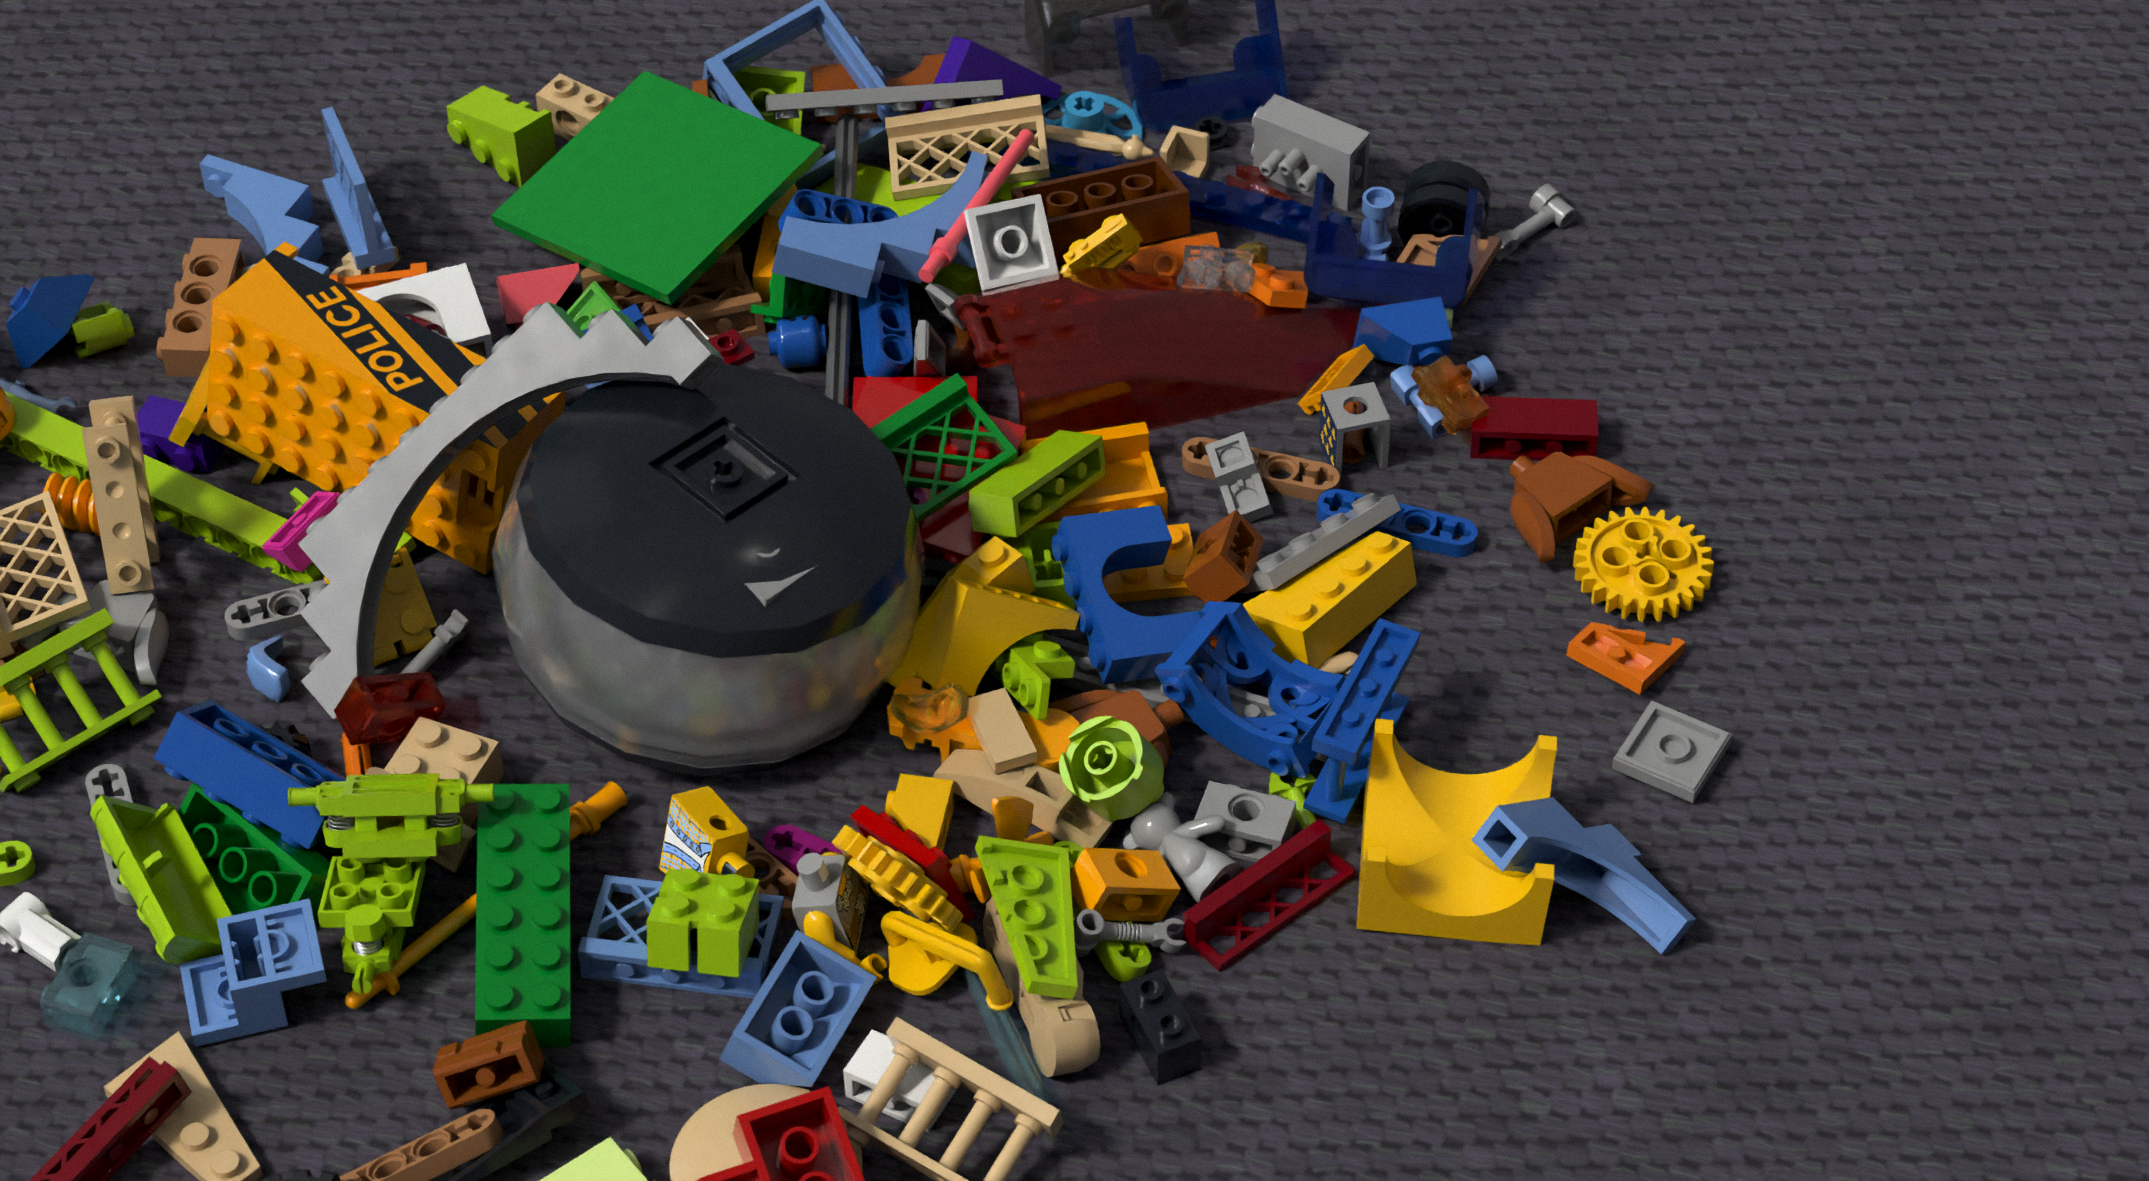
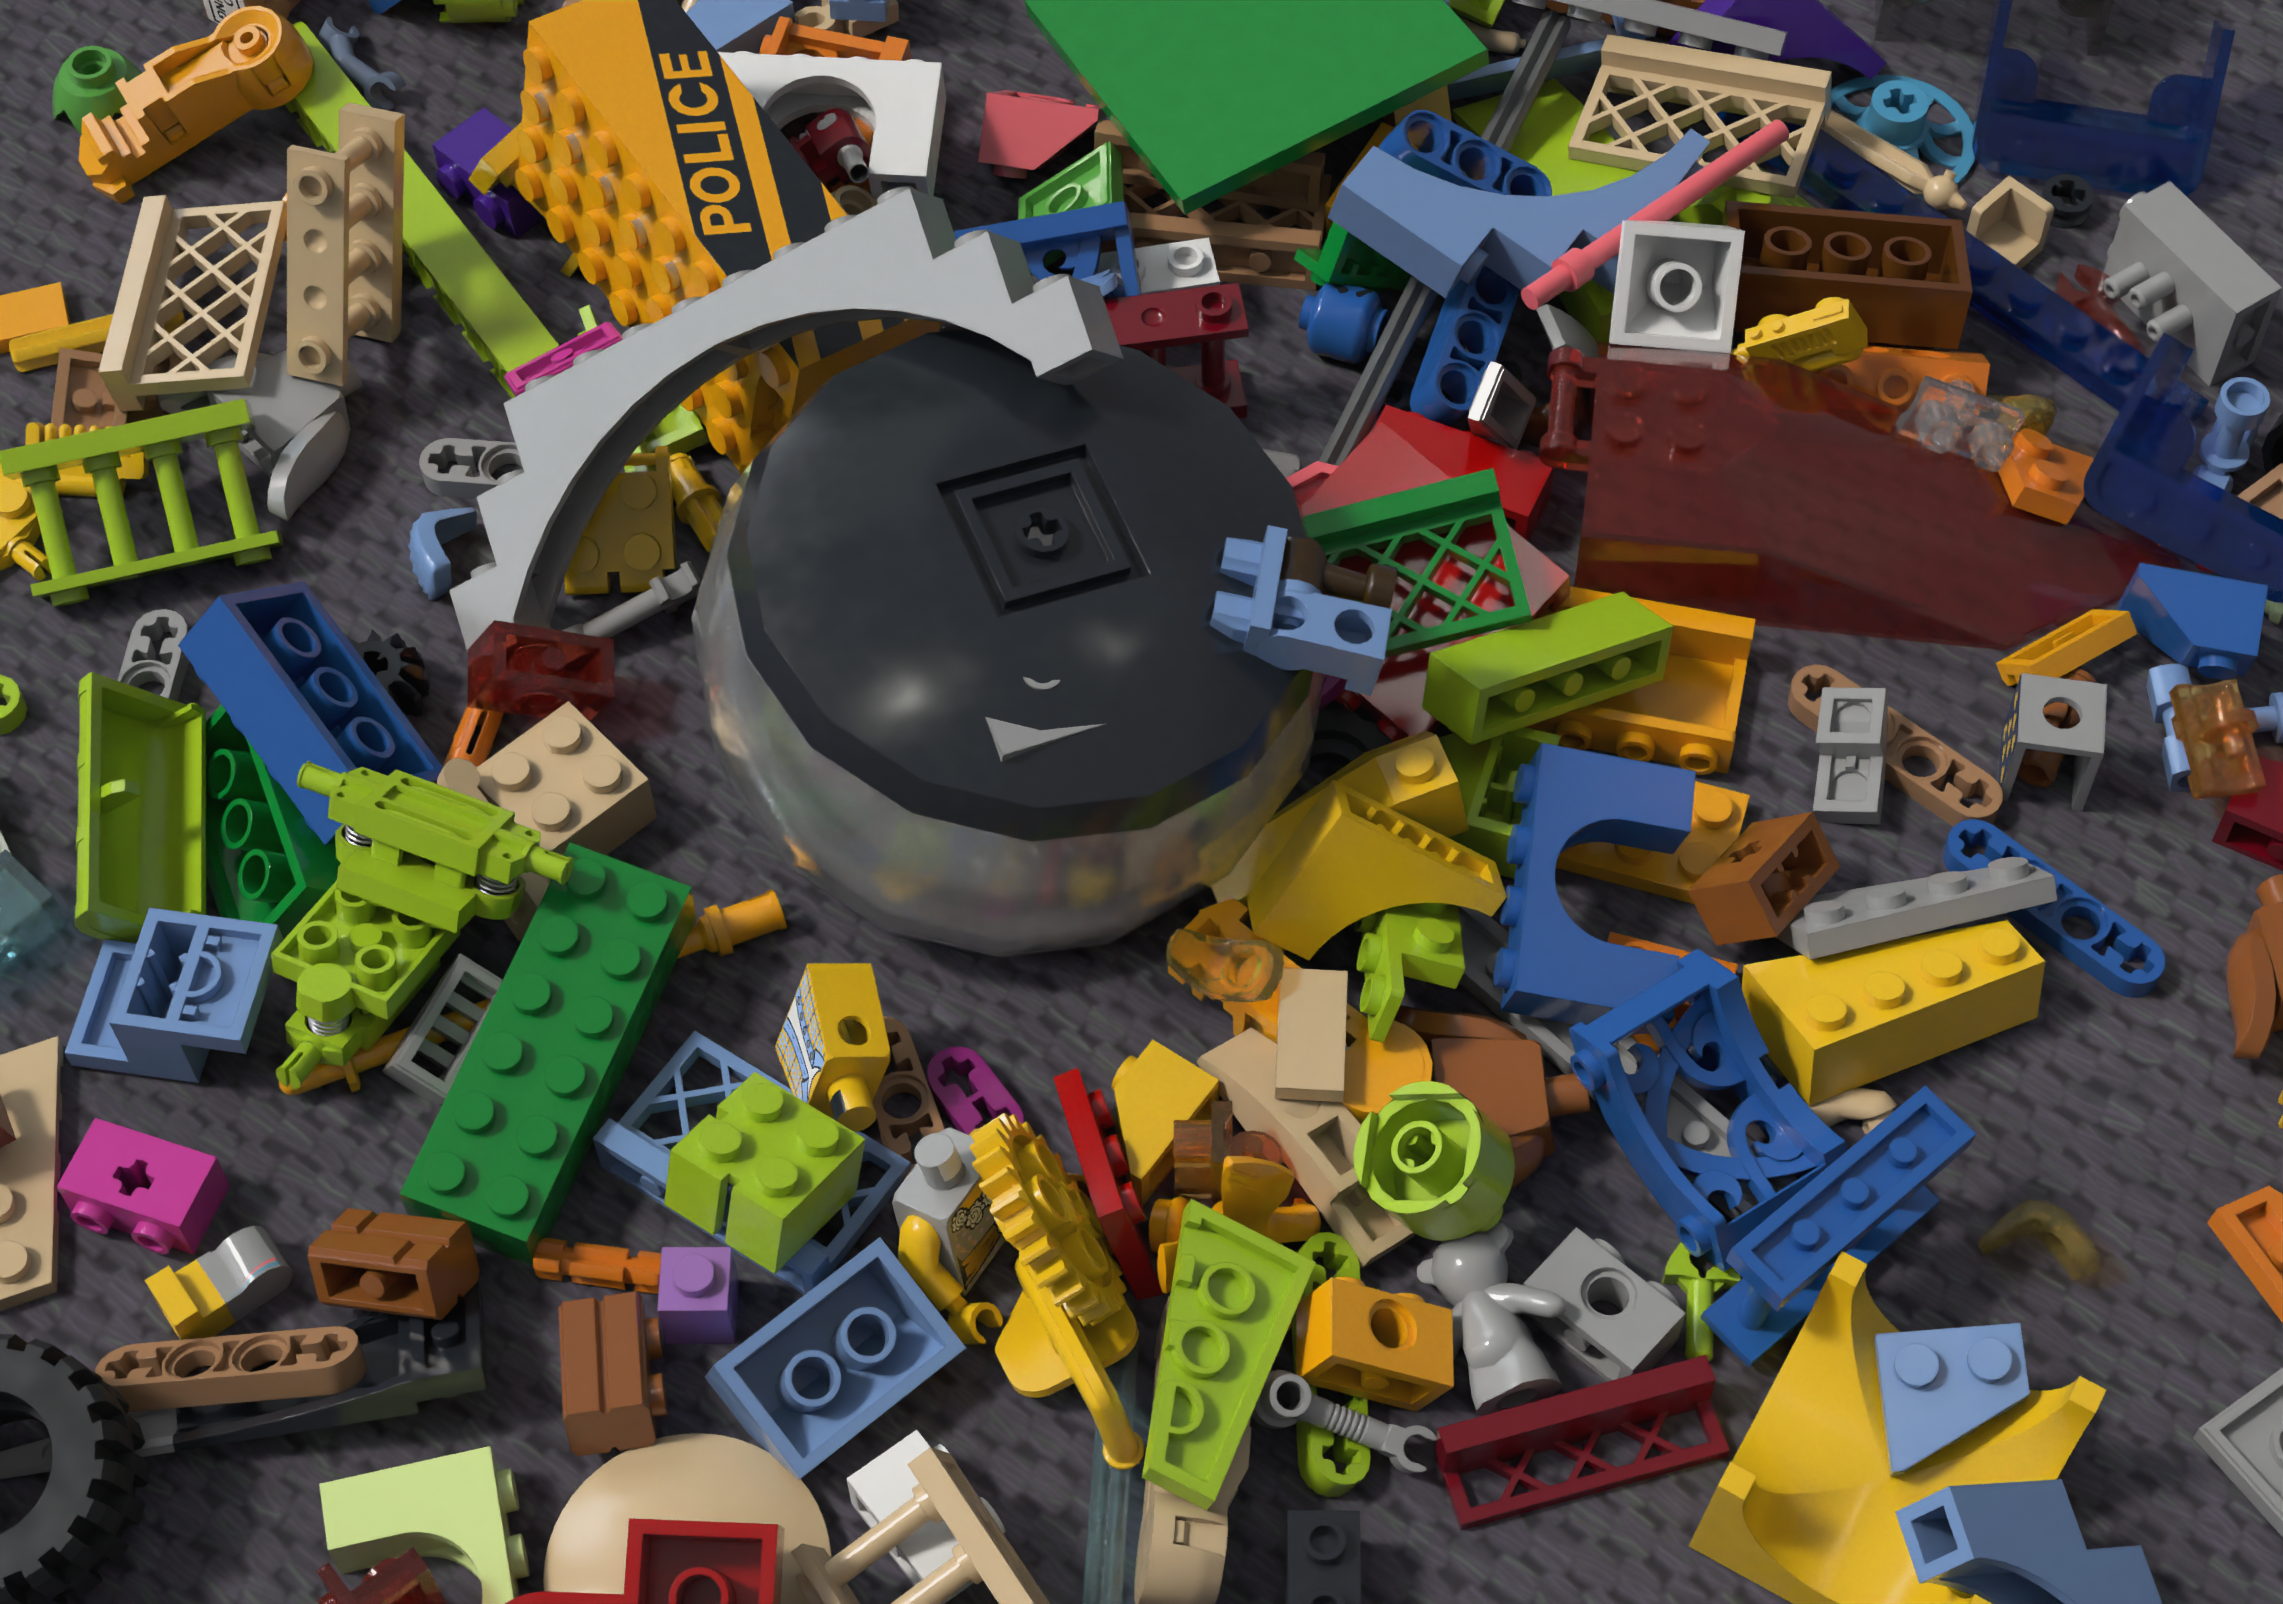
camera: 25 degrees right, 10 degrees up
(291, 1090) = (143, 1188): none -> dark pink brick
(374, 1125) = (221, 1284): none -> leg
(436, 958) = (413, 1076): none -> light grey slope
(440, 588) = (695, 499): none -> yellow axle
(615, 1027) = (597, 1265): none -> orange axle
(660, 1075) = (608, 1373): none -> dark orange brick
(691, 1014) = (698, 1295): none -> medium lavender brick
(903, 469) = (1306, 609): none -> medium blue hips
(967, 820) = (1204, 1145): none -> clear orange hips
(1463, 778) = (1945, 1386): none -> medium blue wing
(1483, 689) = (2053, 1228): none -> clear yellow hair

